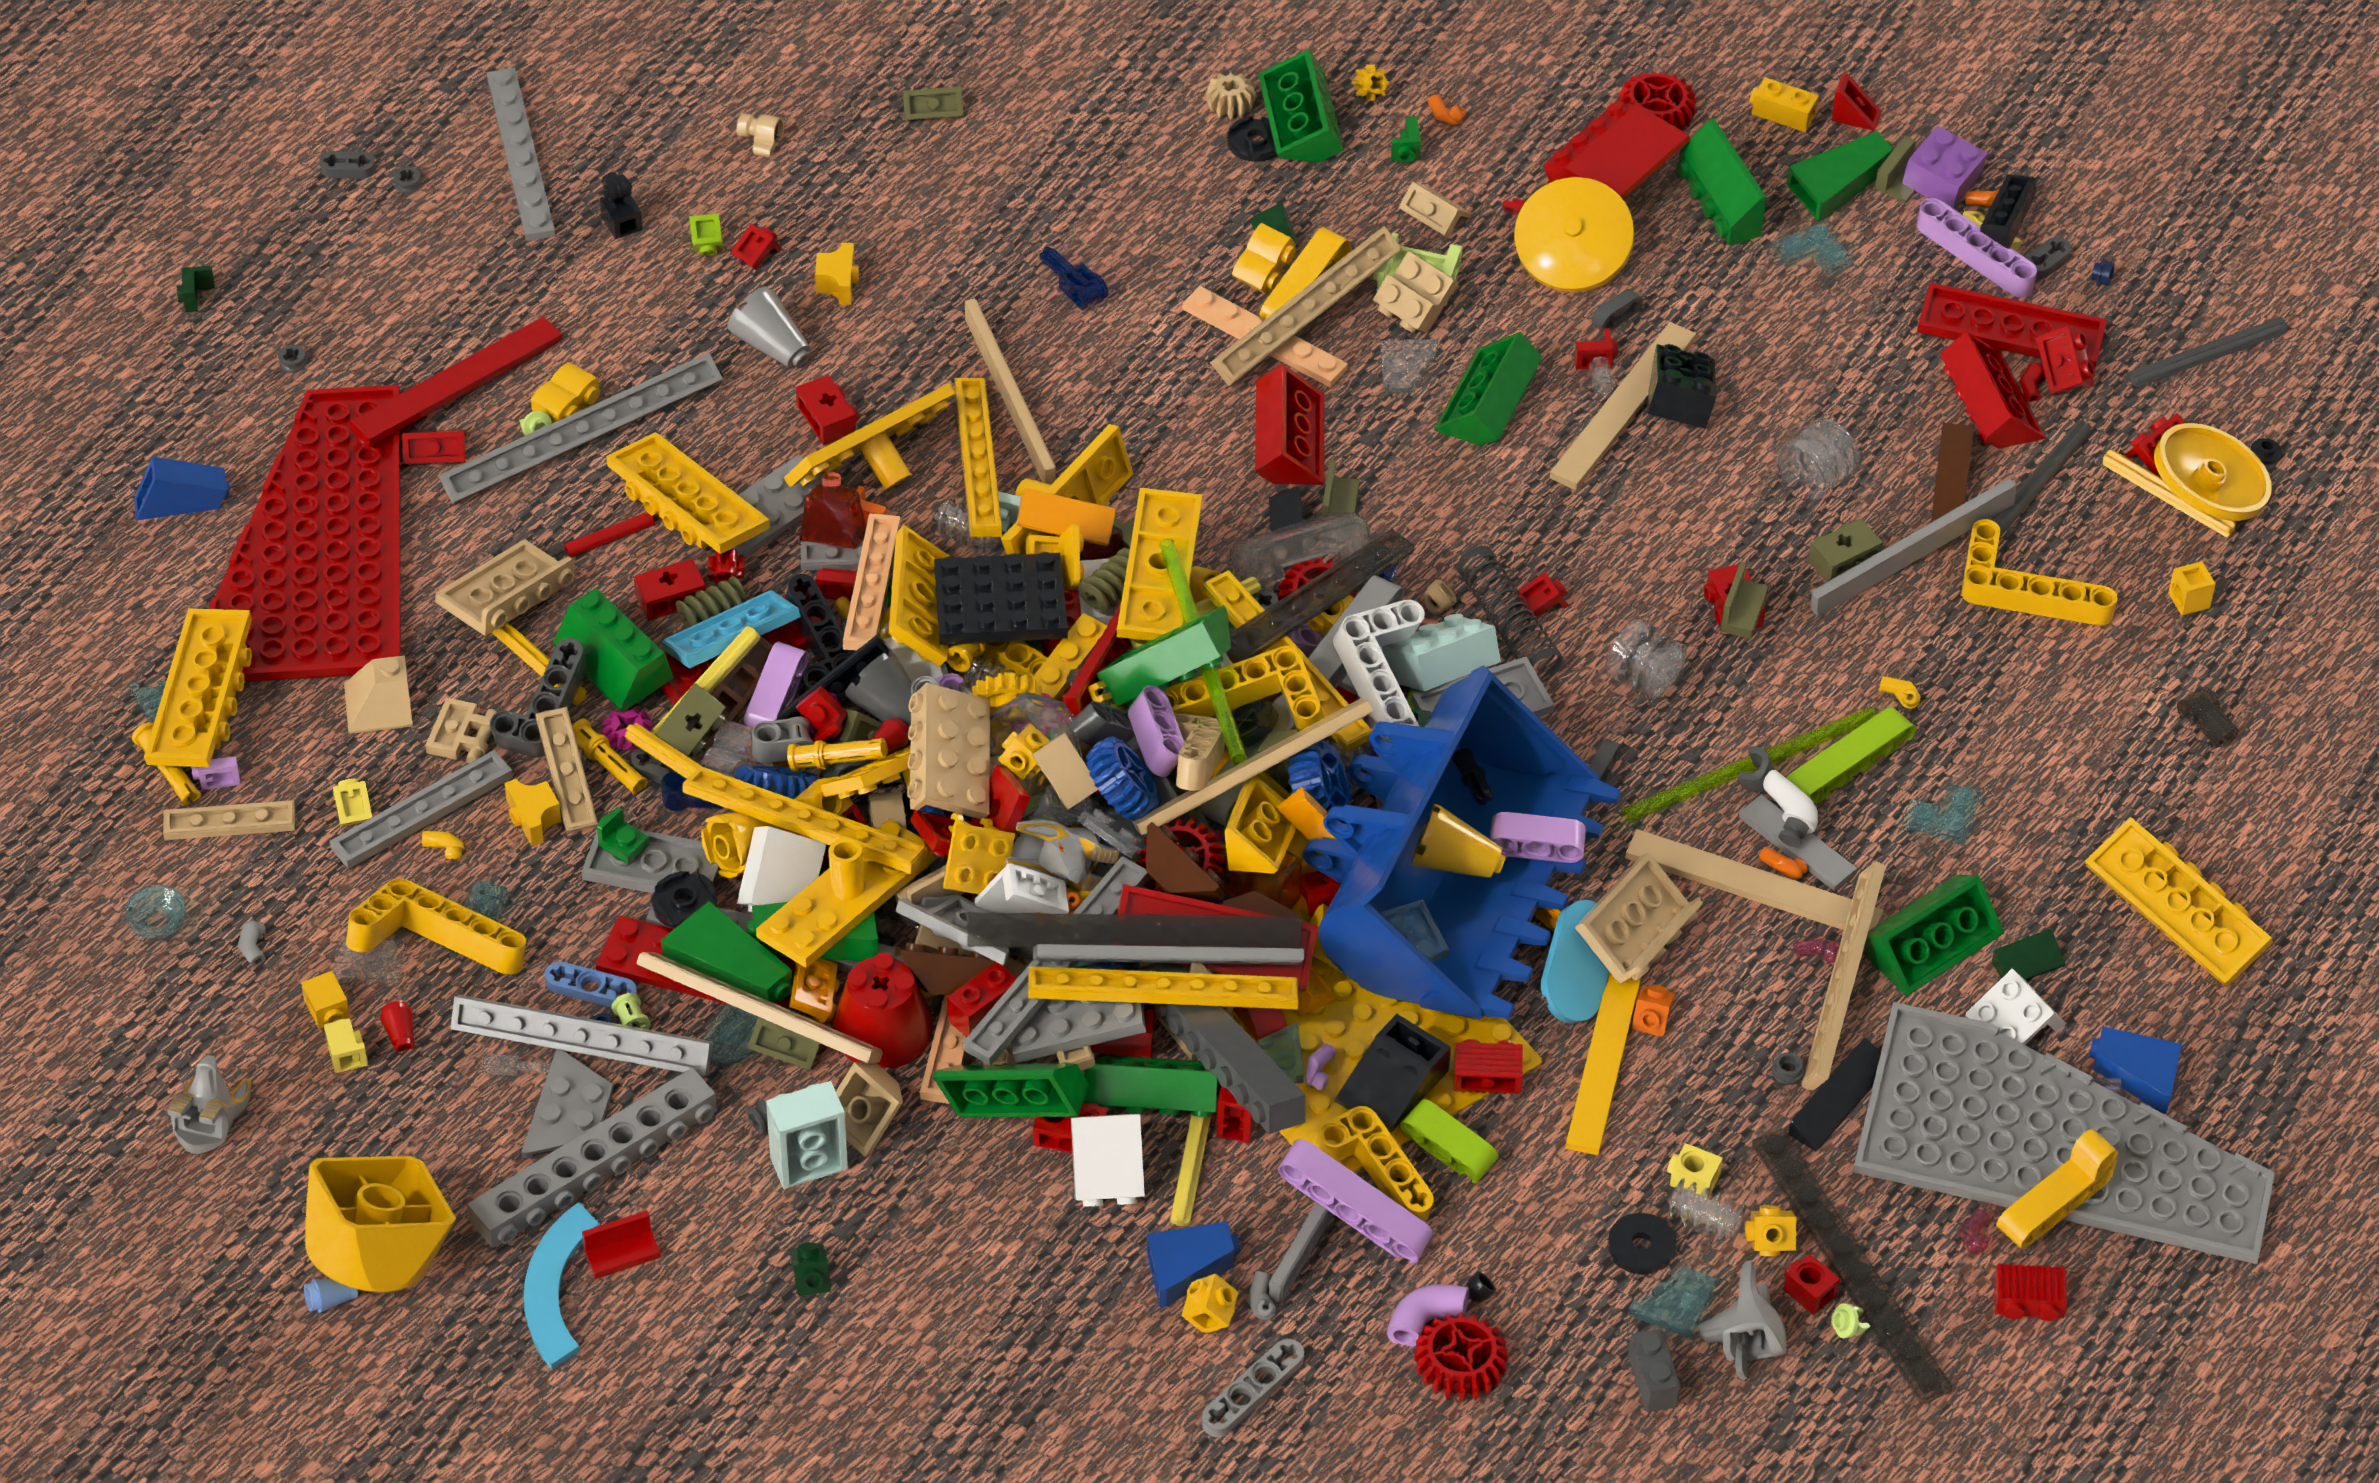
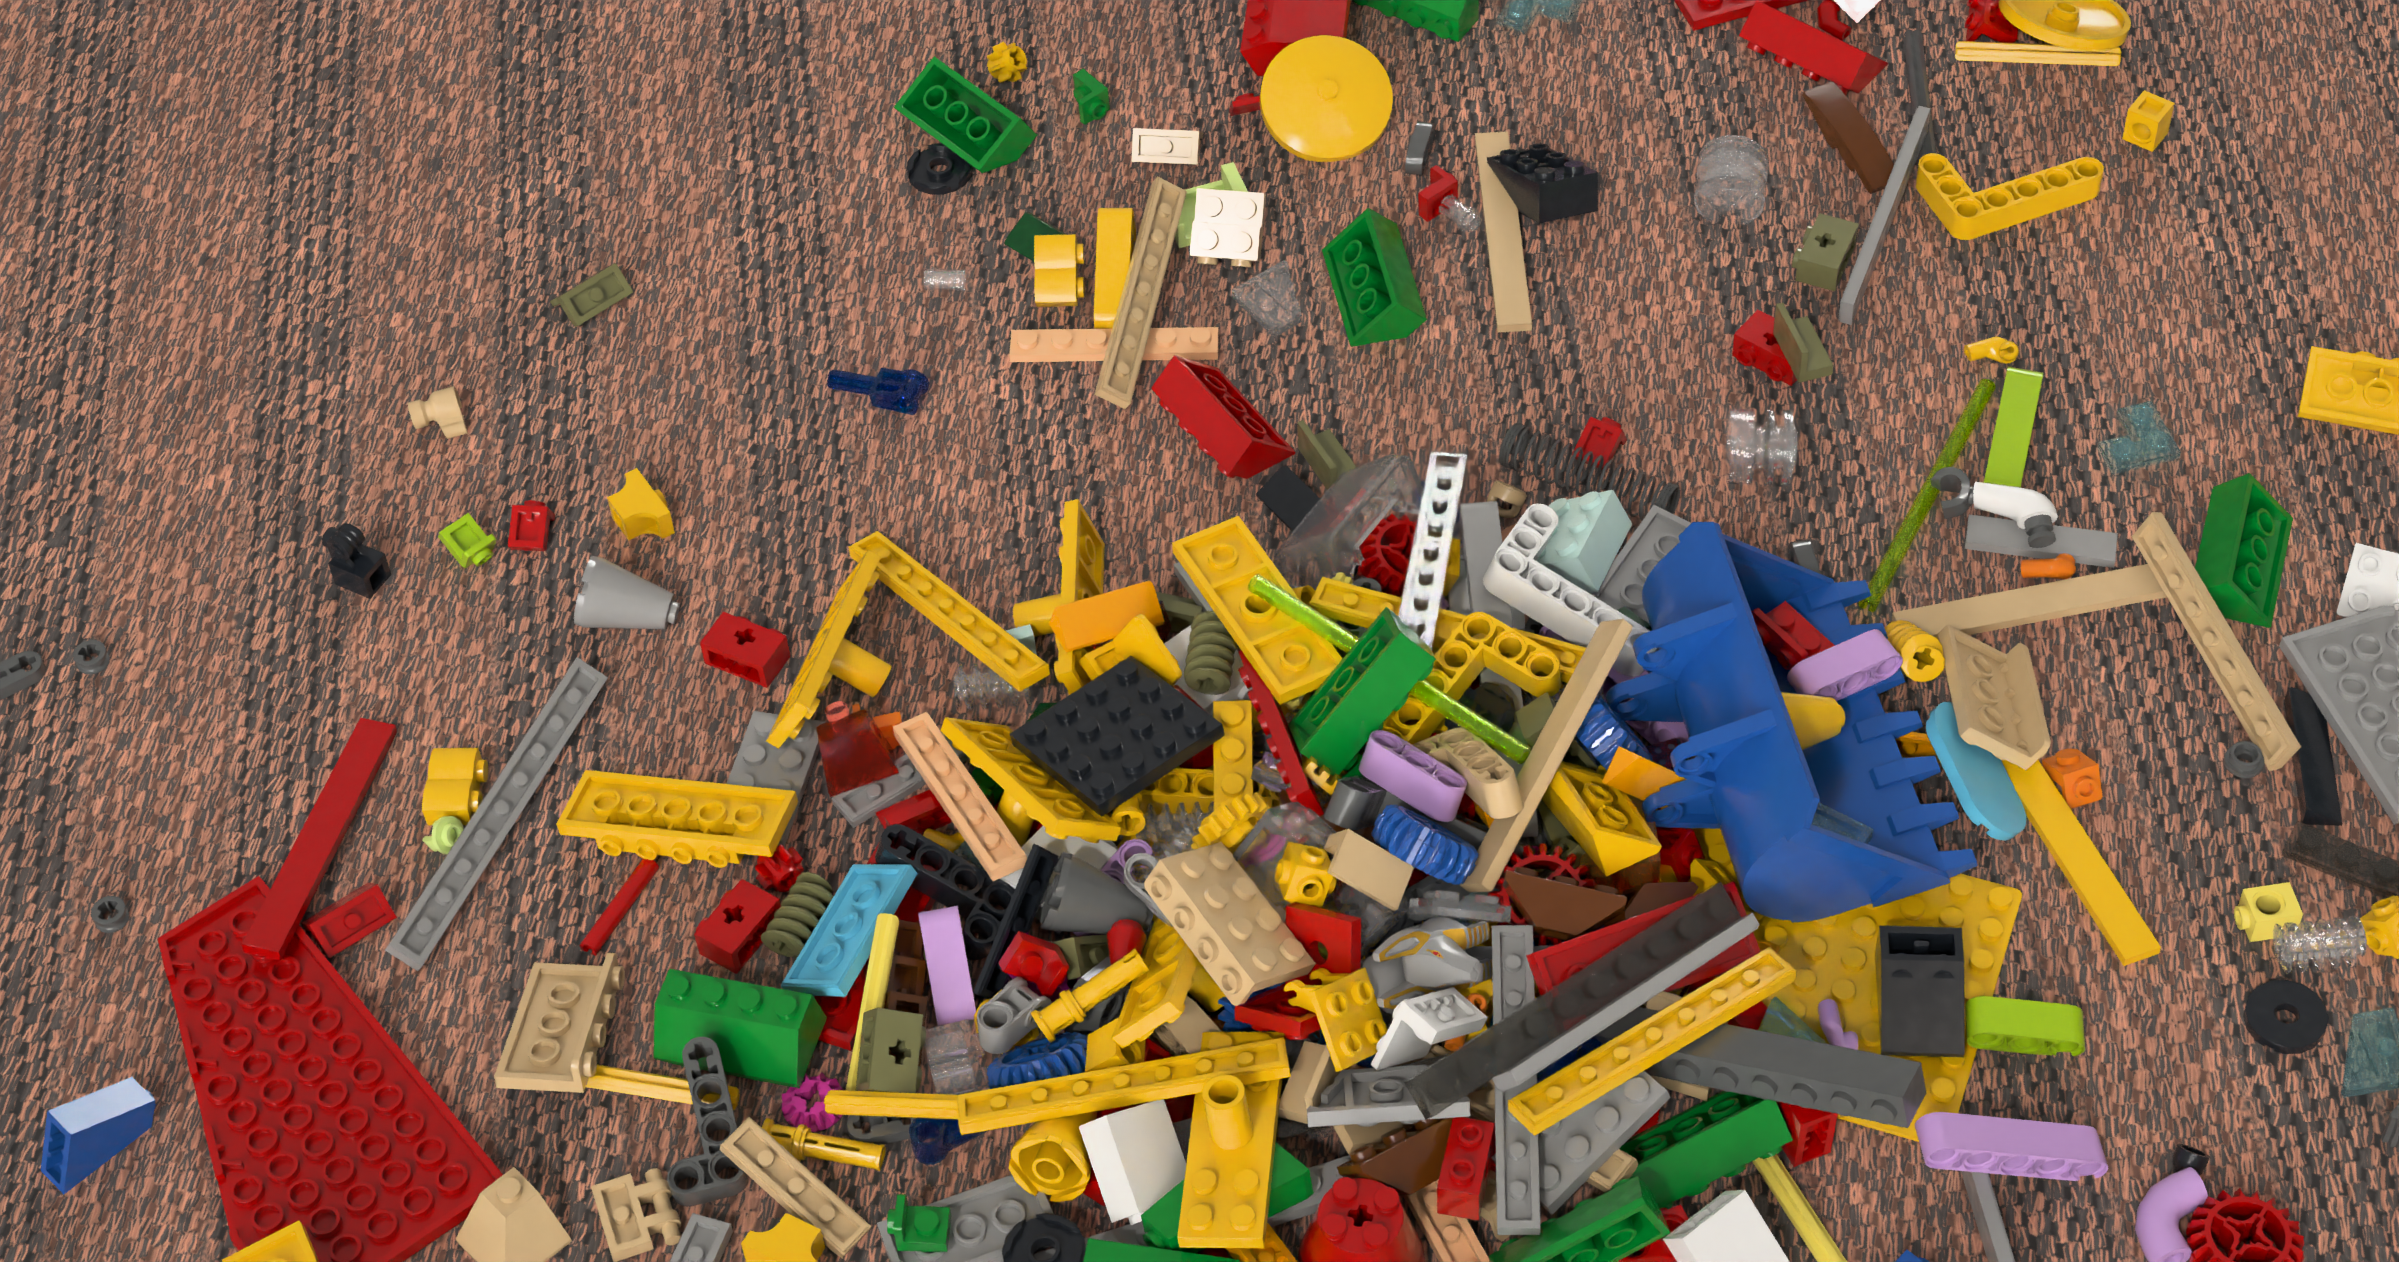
camera: 30 degrees left, 0 degrees up
(520, 154) = (197, 567): light grey plate -> none
(1010, 392) = (919, 530): tan tile -> none
(1179, 219) = (944, 279): none -> clear pin
(1230, 95) = (883, 140): tan gear -> none
(1412, 1193) = (1998, 1085): yellow beam -> none
(1450, 116) = (1095, 58): orange arm -> none
(1488, 1067) = (1996, 926): red brick -> none
(1524, 791) = (1789, 635): none -> red bracket
(1611, 857) = (1920, 650): none -> yellow piece
(1816, 946) = (2156, 625): clear pink arm -> none
(2029, 956) = (2340, 529): dark green slope -> none
(2204, 711) = (2257, 222): clear smoke piece -> none

